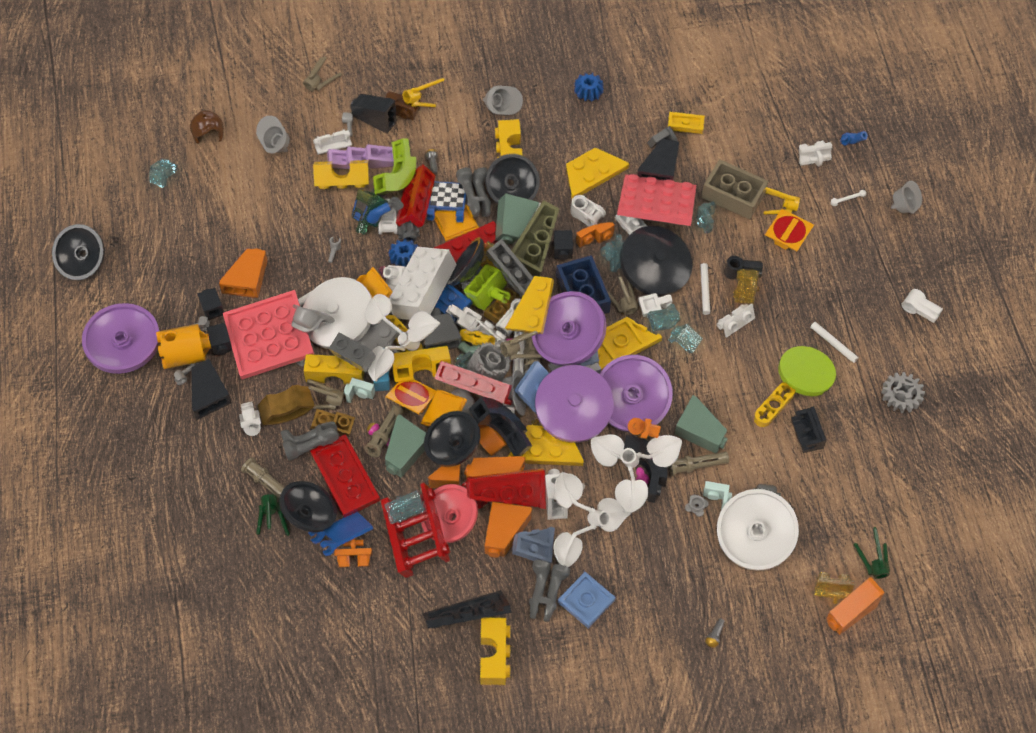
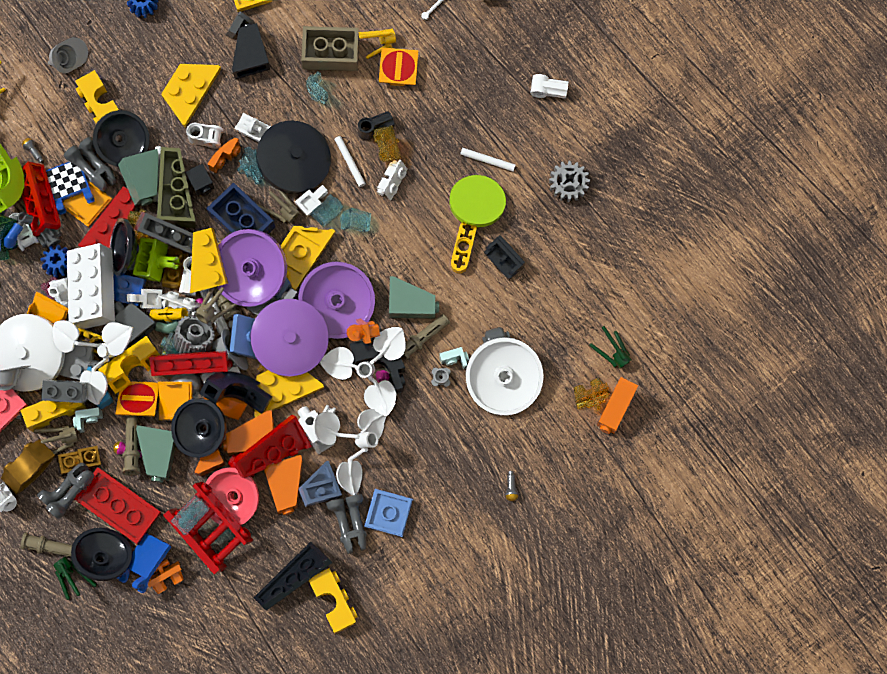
camera: 30 degrees left, 15 degrees up
(657, 200) = (265, 95): coral plate -> none

